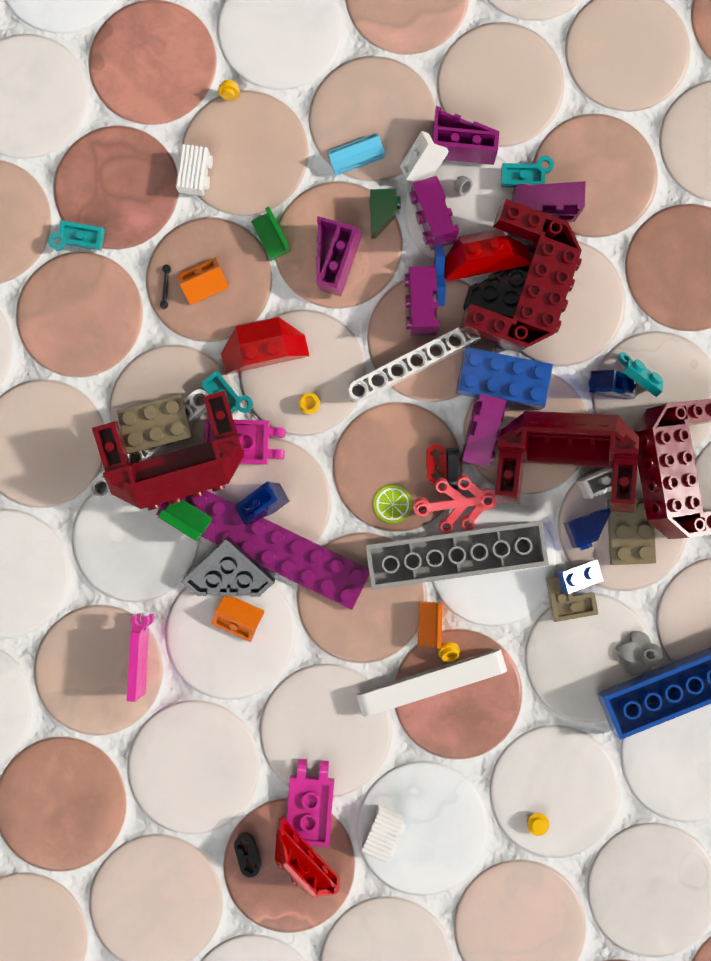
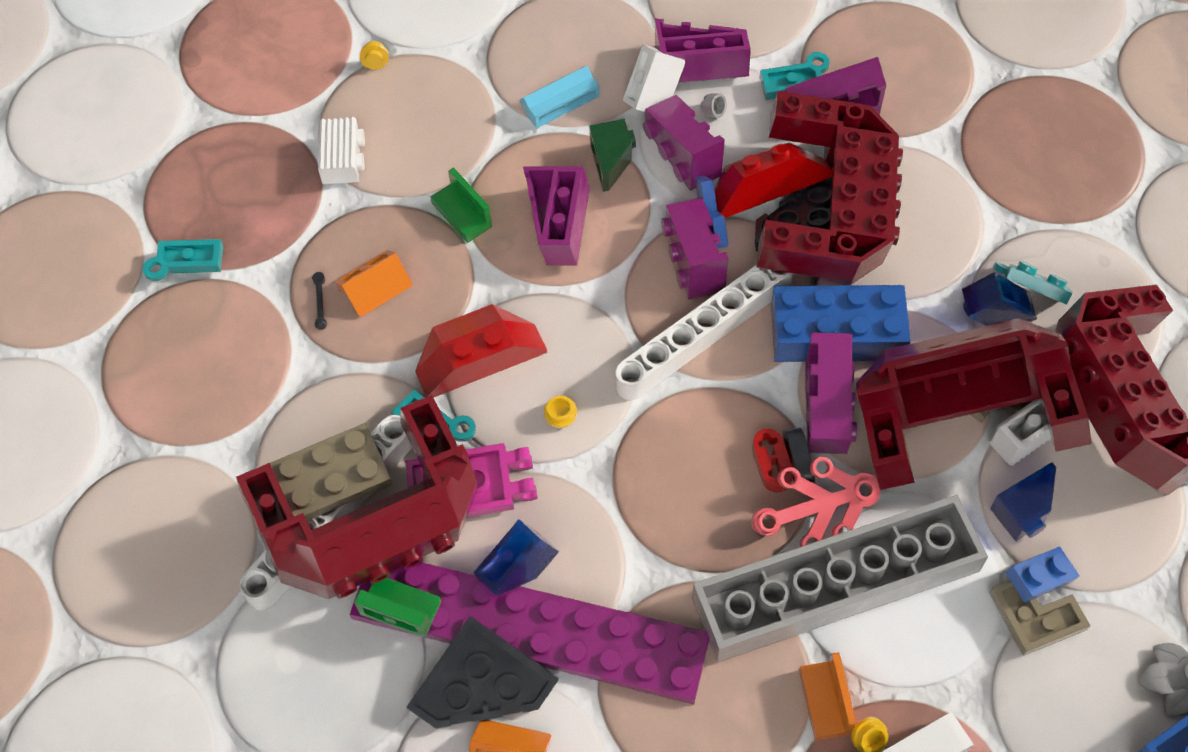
camera: 10 degrees left, 25 degrees down
(392, 504) = (720, 531): lime sticker -> none
(631, 536) = (1098, 500): dark tan plate -> none

